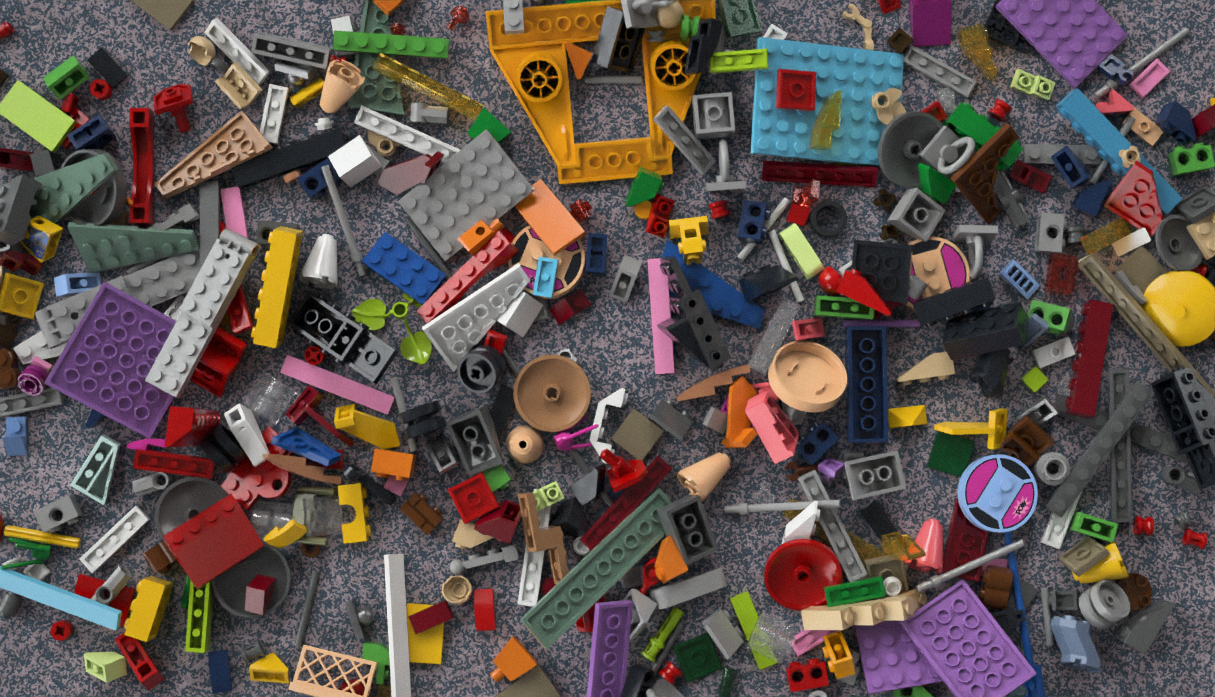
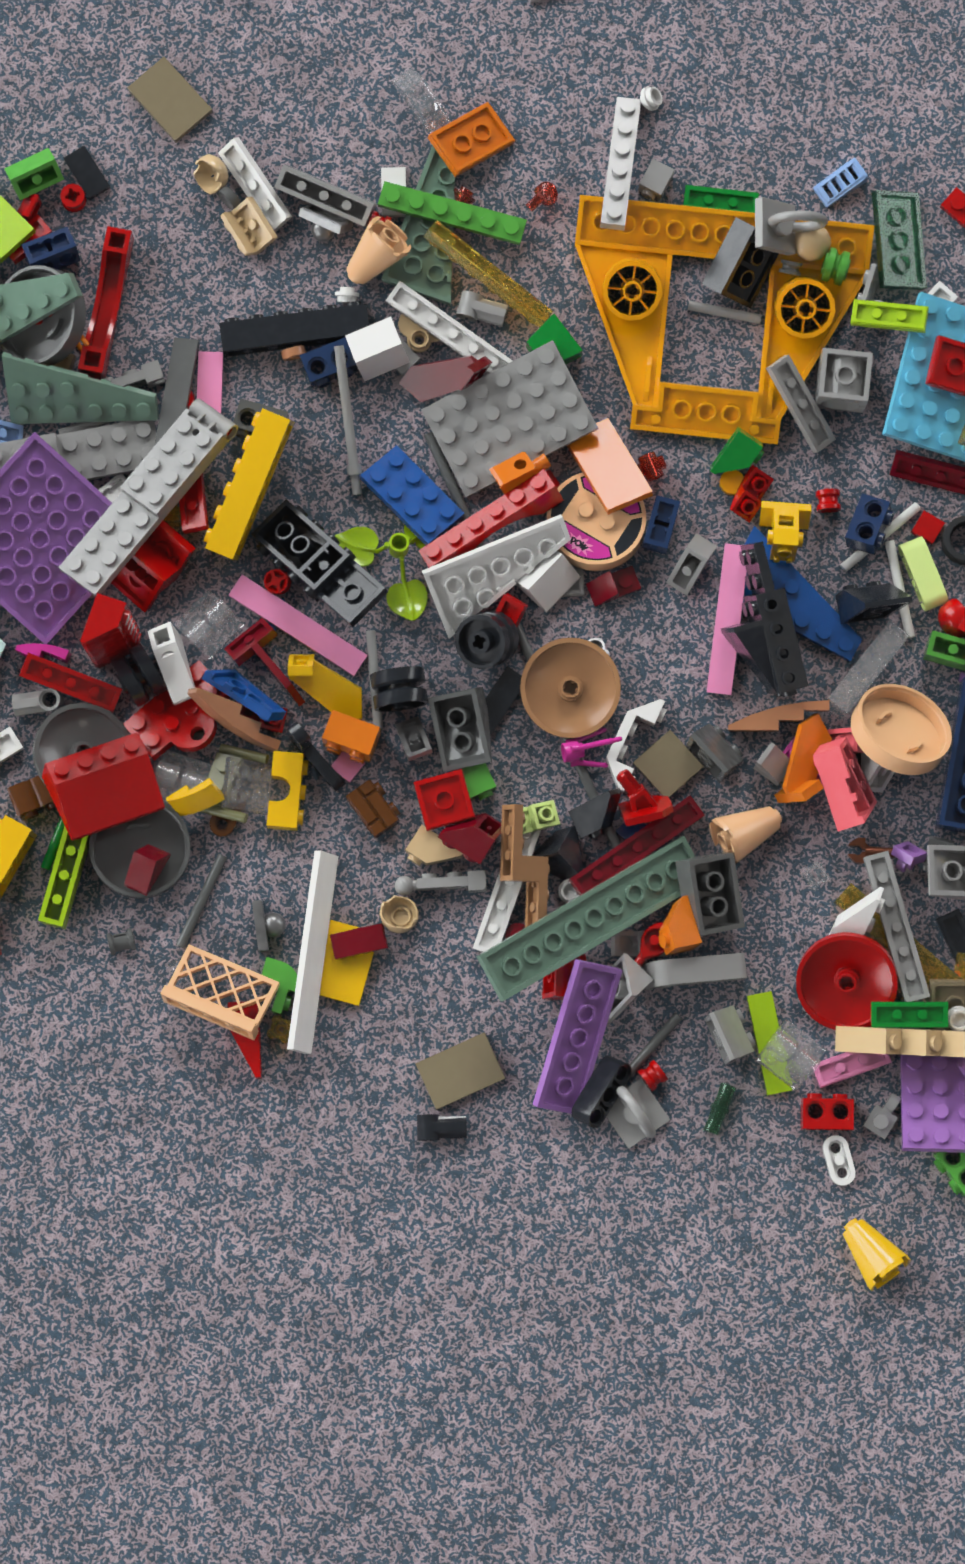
camera: 10 degrees right, 5 degrees down
(174, 100) = (163, 229): red piece -> none
(220, 671) = (74, 957): dark blue slope -> none
(224, 149) = (217, 301): medium nougat wing -> none
(269, 670) = (137, 970): yellow slope -> none
(274, 113) = (285, 271): white plate -> none
(307, 93) = (333, 253): yellow slope -> none
(322, 264) = (308, 470): white cone -> none
(484, 610) = (429, 947): red slope -> none
(512, 661) = (452, 1019): orange torso -> none
(534, 442) = (520, 757): light nougat cone -> none
(545, 277) = (591, 538): medium azure plate -> none
(579, 58) = (686, 276): orange slope -> none
(657, 642) = (643, 1033): lime pin -> none
(697, 657) = (690, 1063): dark green tile -> none
(703, 45) = (847, 287): black slope -> none
(724, 180) = (843, 465): light grey tile -> none
(745, 508) = (789, 885): light grey bar -> none
(806, 195) = (943, 504): clear red bracket -> none
(808, 329) = (913, 672): coral slope -> none
(819, 446) = (899, 824): dark blue brick -> none
(839, 655) = (873, 1092): light orange brick -> none

